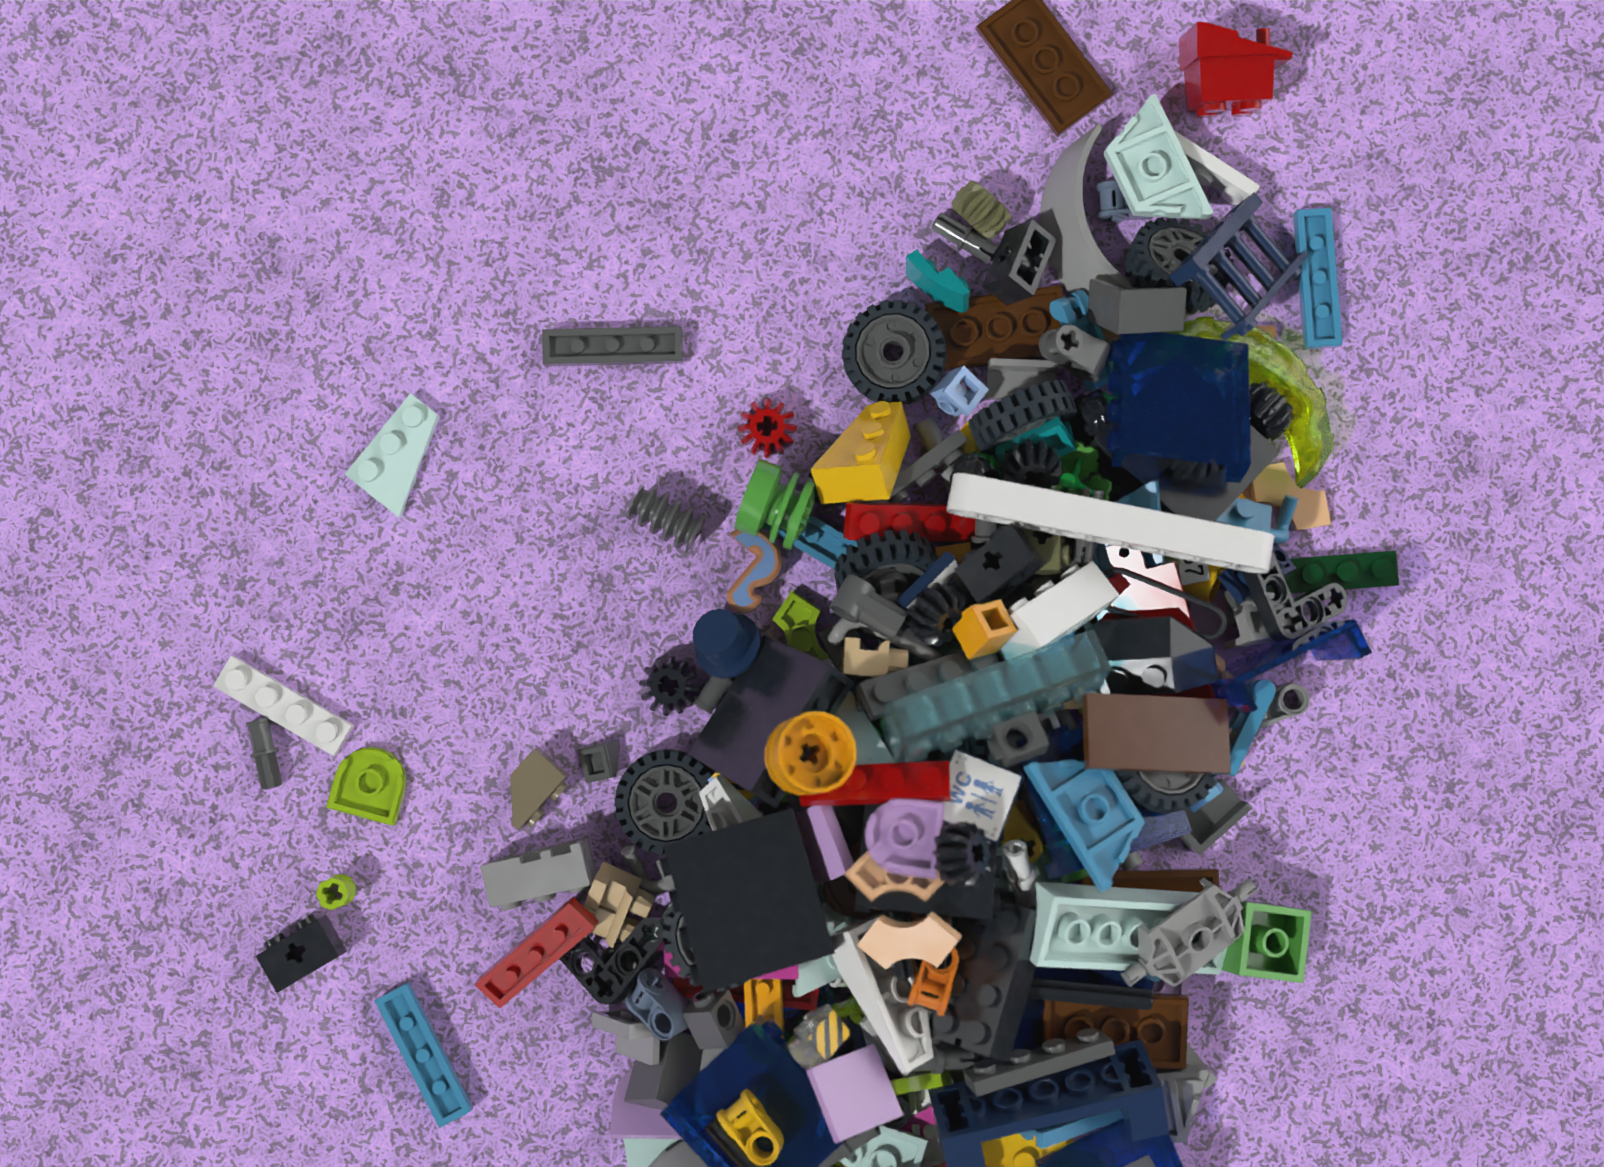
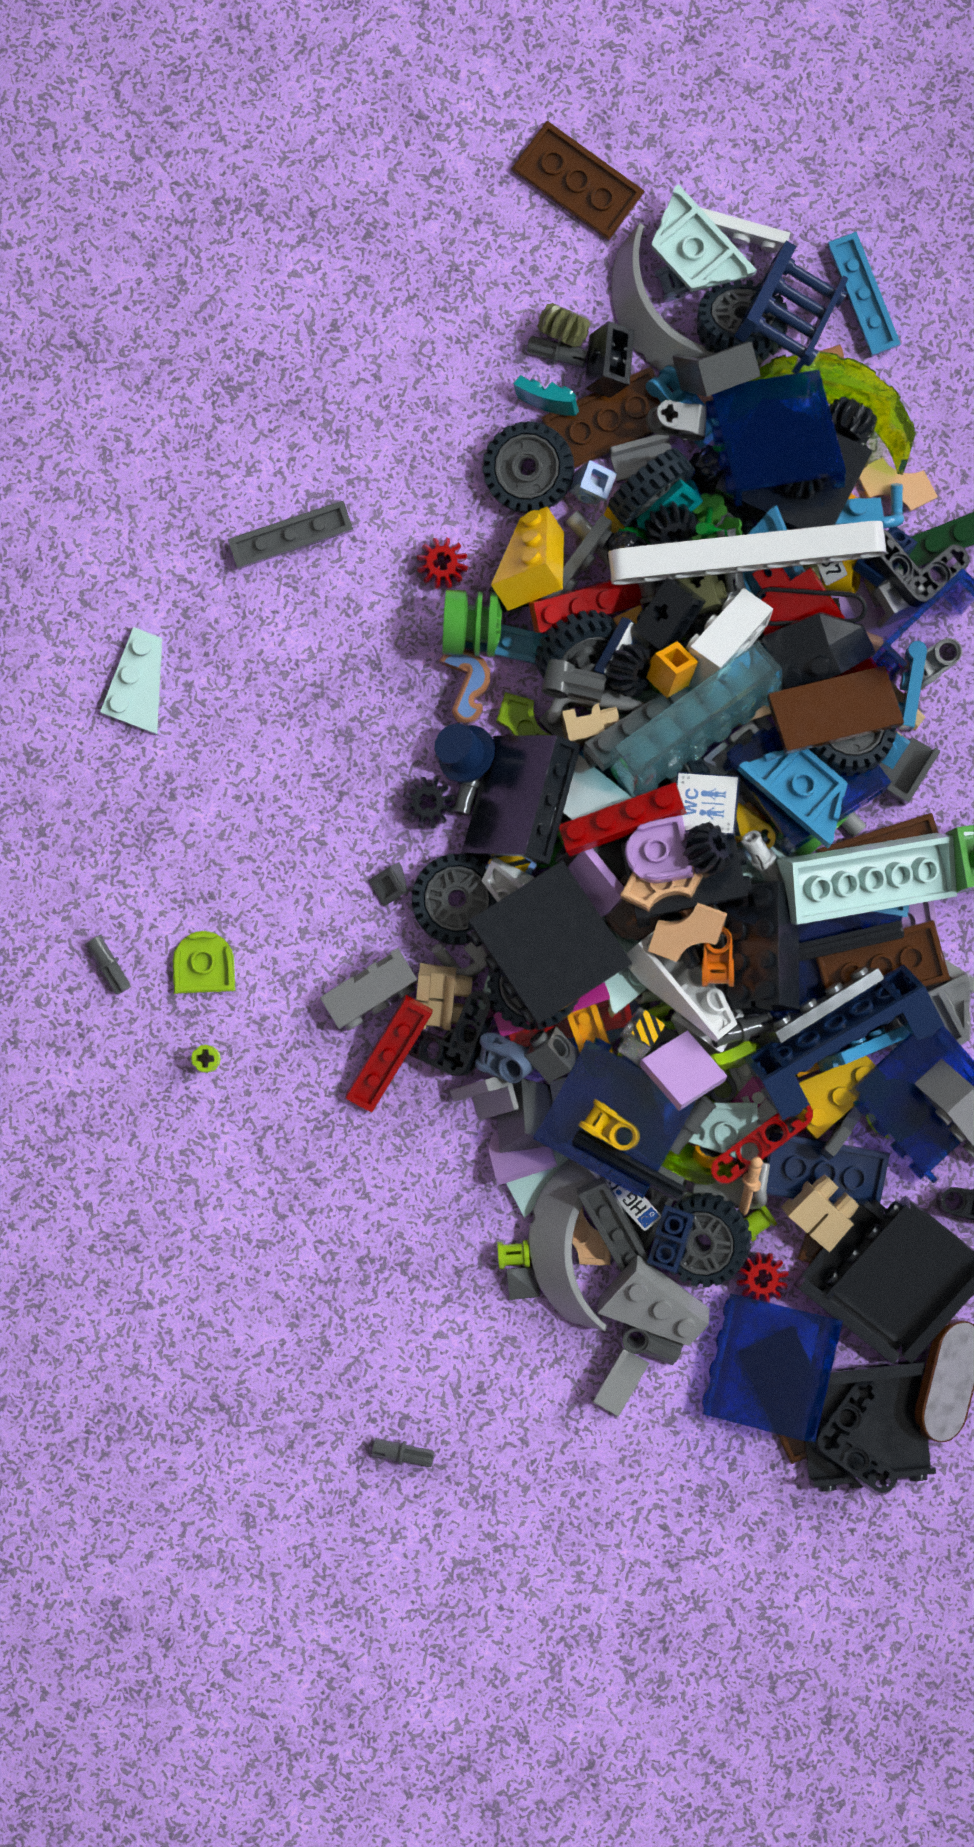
camera: 15 degrees left, 0 degrees up
(282, 963) = (189, 1134): black brick -> none
(283, 705) = (110, 920): white plate -> none
(424, 1054) = (321, 1169): dark azure plate -> none
(532, 785) = (341, 919): dark tan slope -> none
(666, 517) = (381, 663): dark grey piece -> none
(830, 757) = (572, 793): light orange wheel -> none
(1024, 725) = (729, 736): dark grey brick -> none
(1168, 947) = (899, 879): light grey plate -> none
(1228, 70) = (733, 146): red piece -> none

